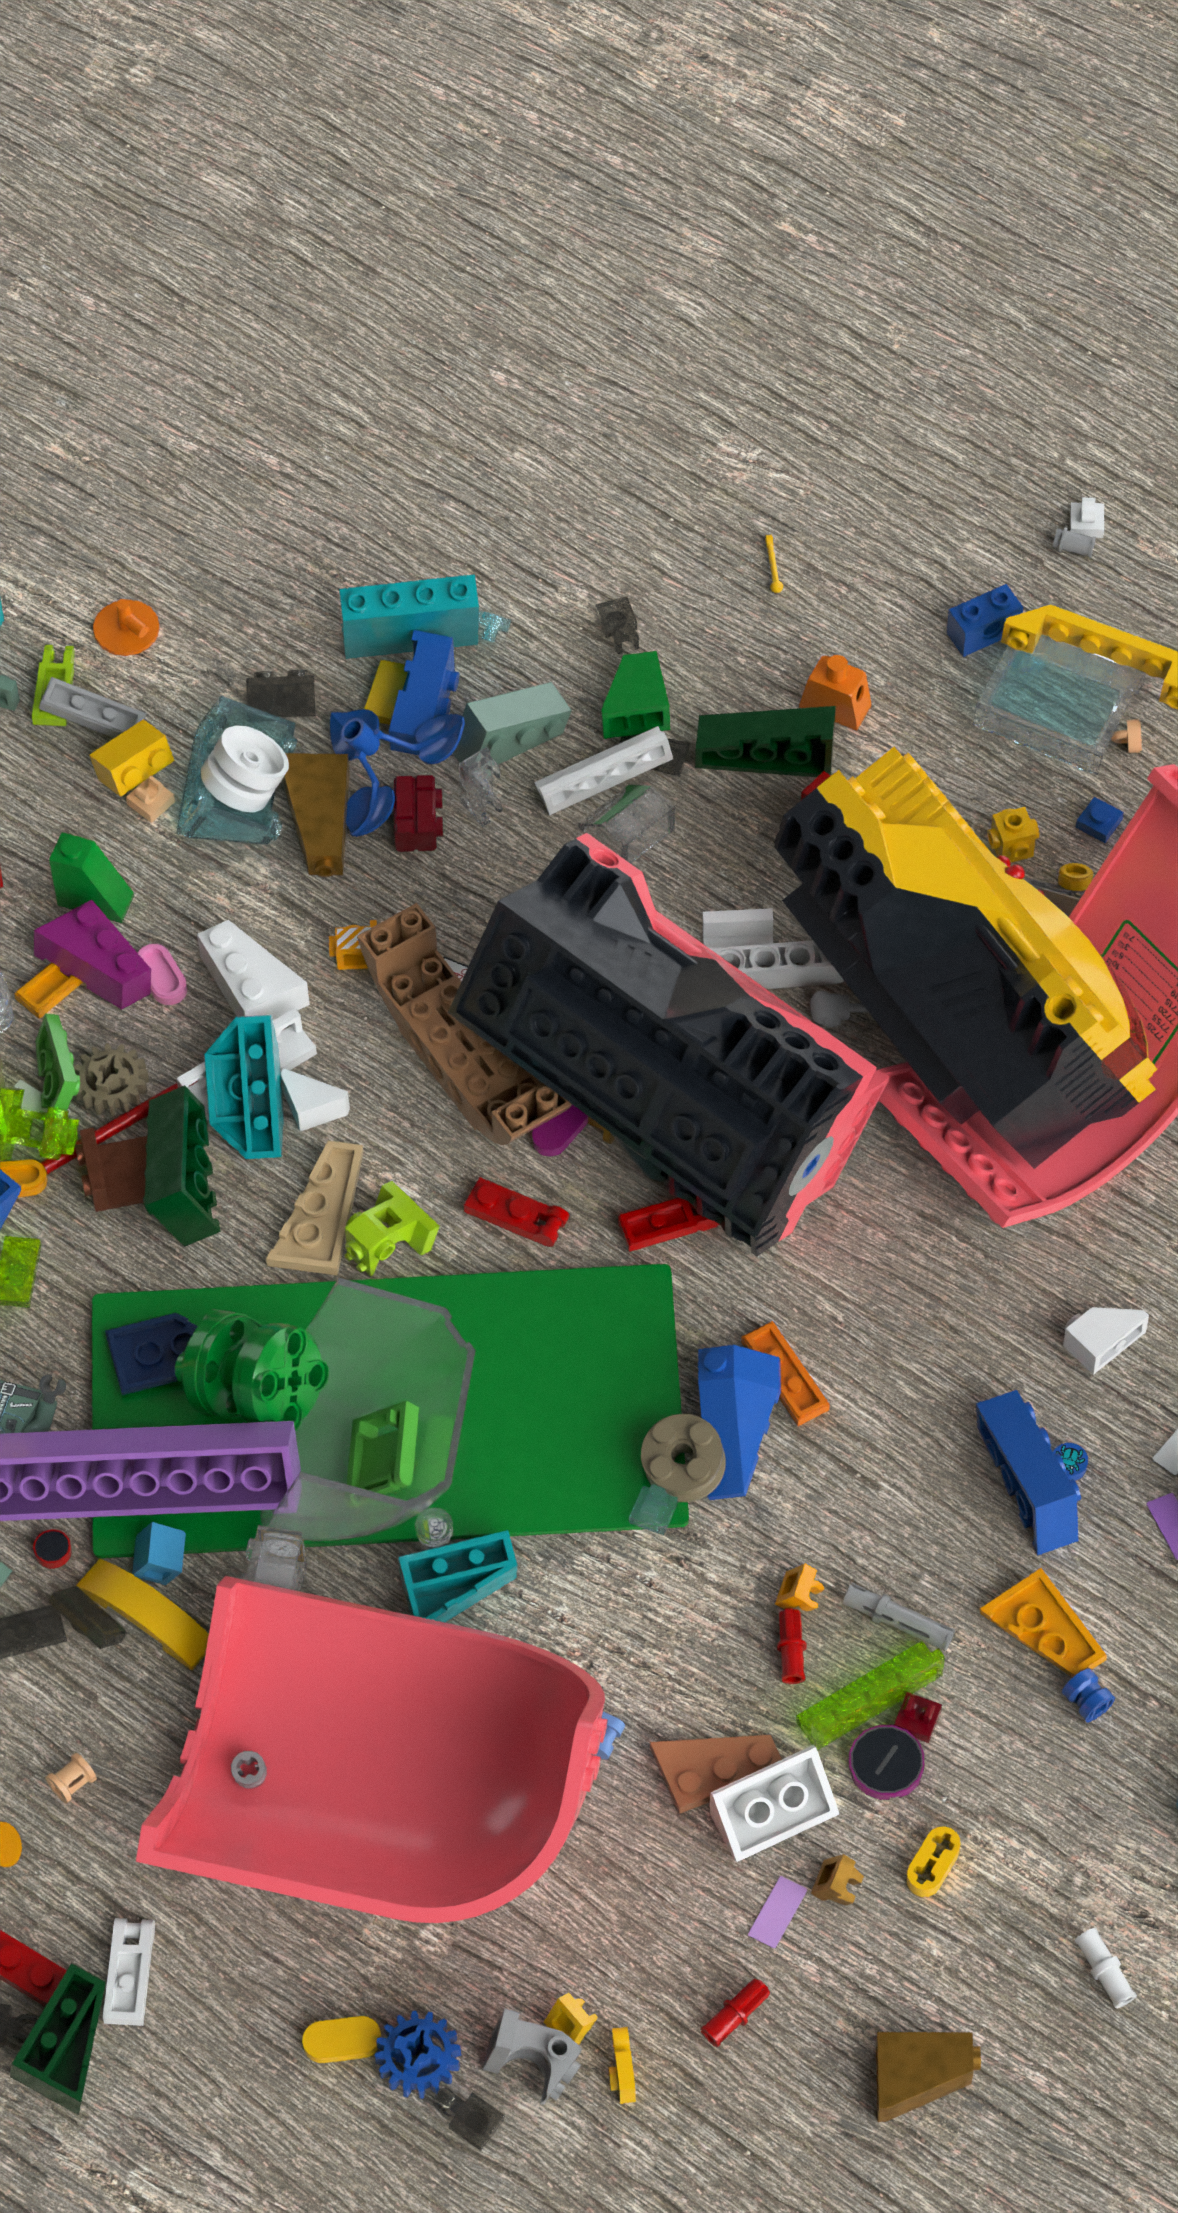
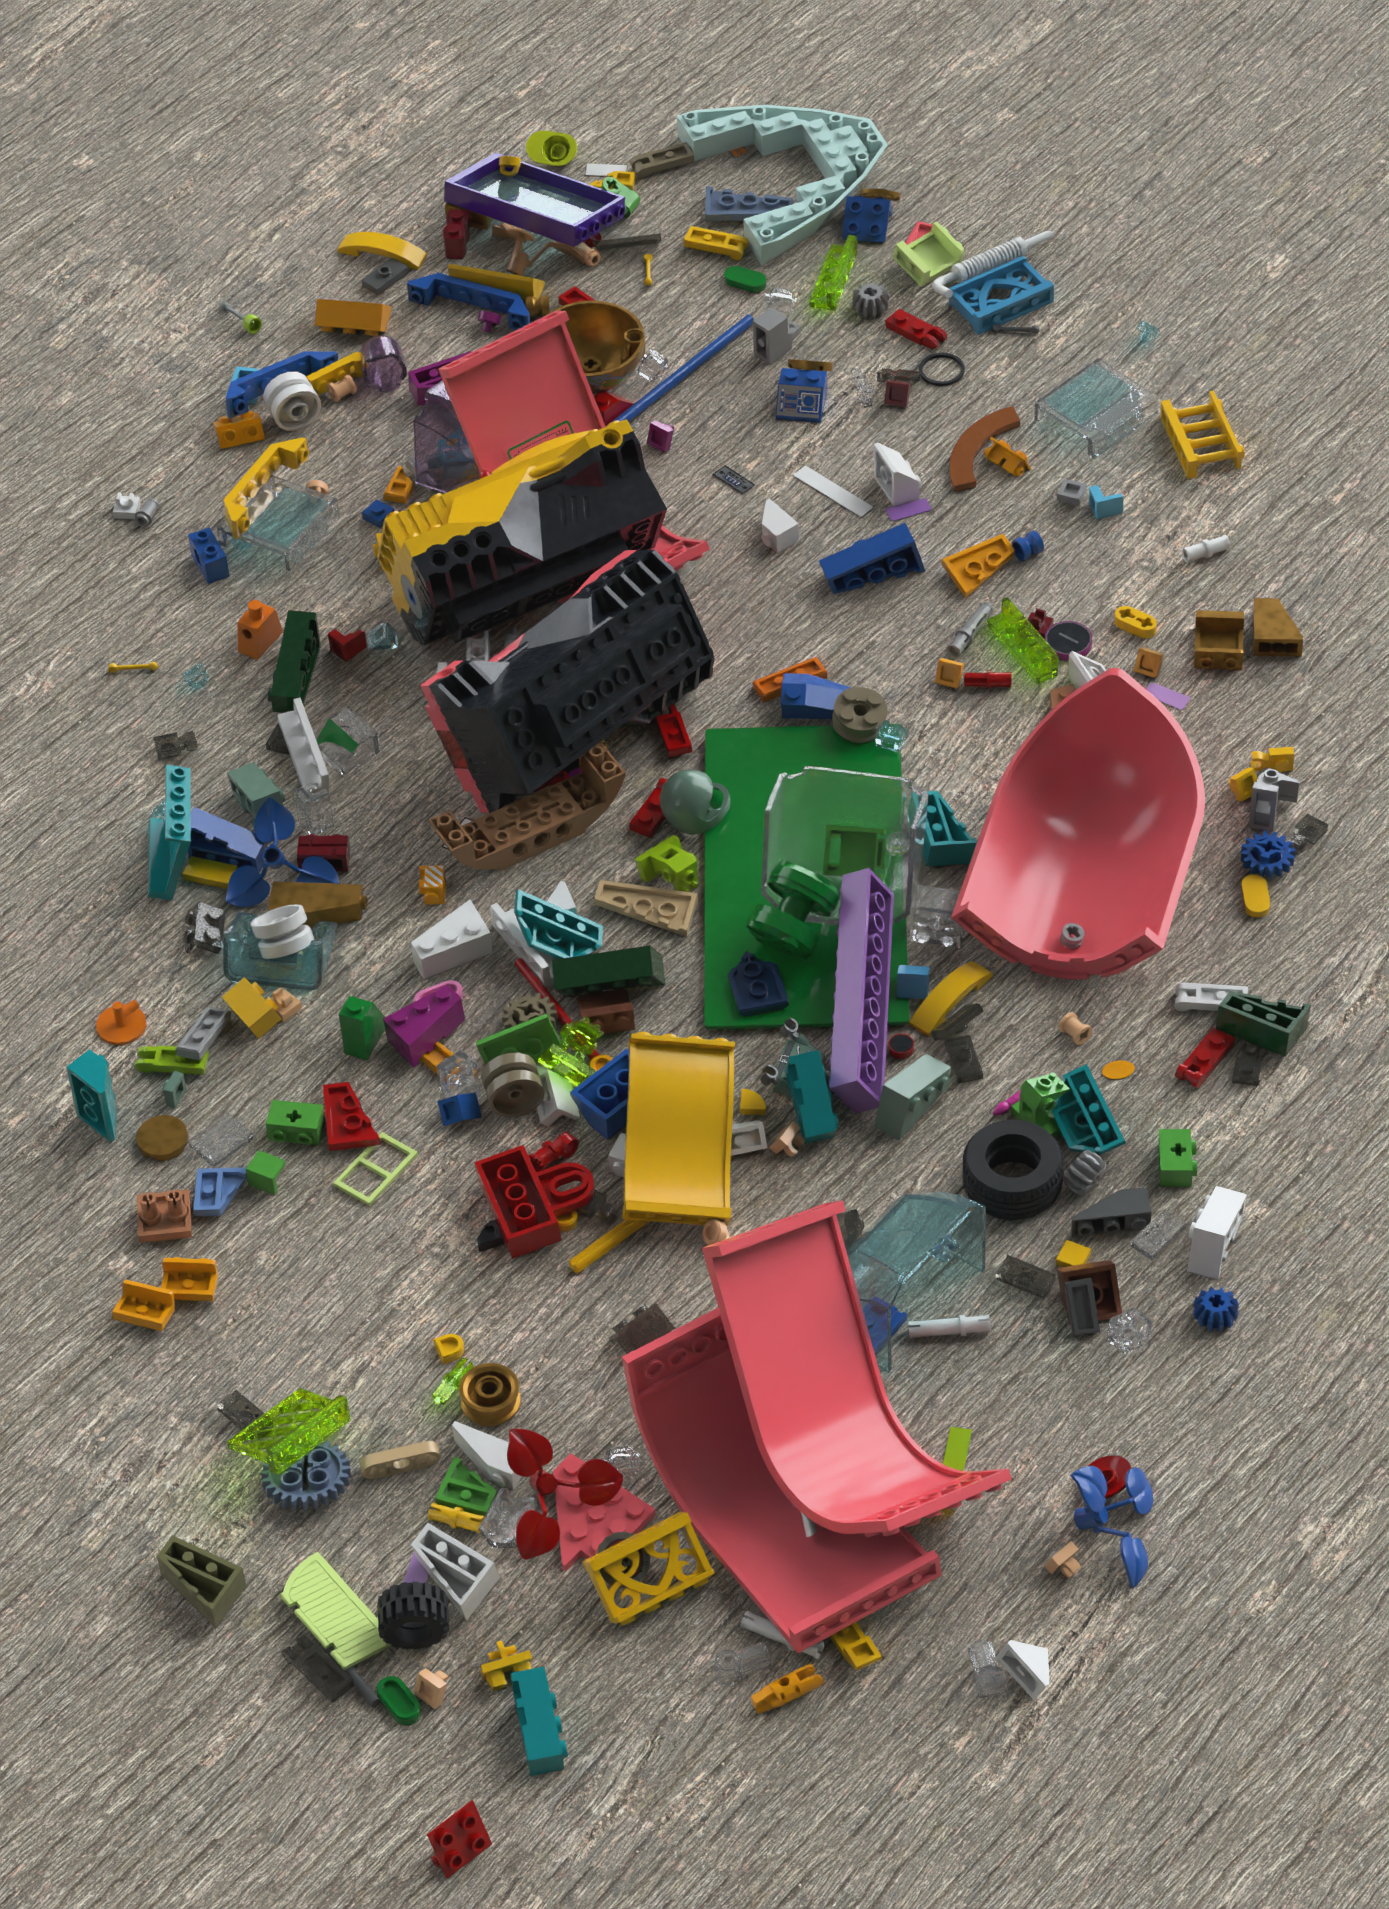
camera: 85 degrees left, 10 degrees down
(494, 1228) = (687, 802): none -> sand green piece
(636, 698) = (243, 730): green slope -> none
(735, 2012) = (1236, 711): red axle -> none
(755, 629) = (193, 672): none -> clear light blue tile
(889, 1988) = (1219, 640): none -> pearl gold panel

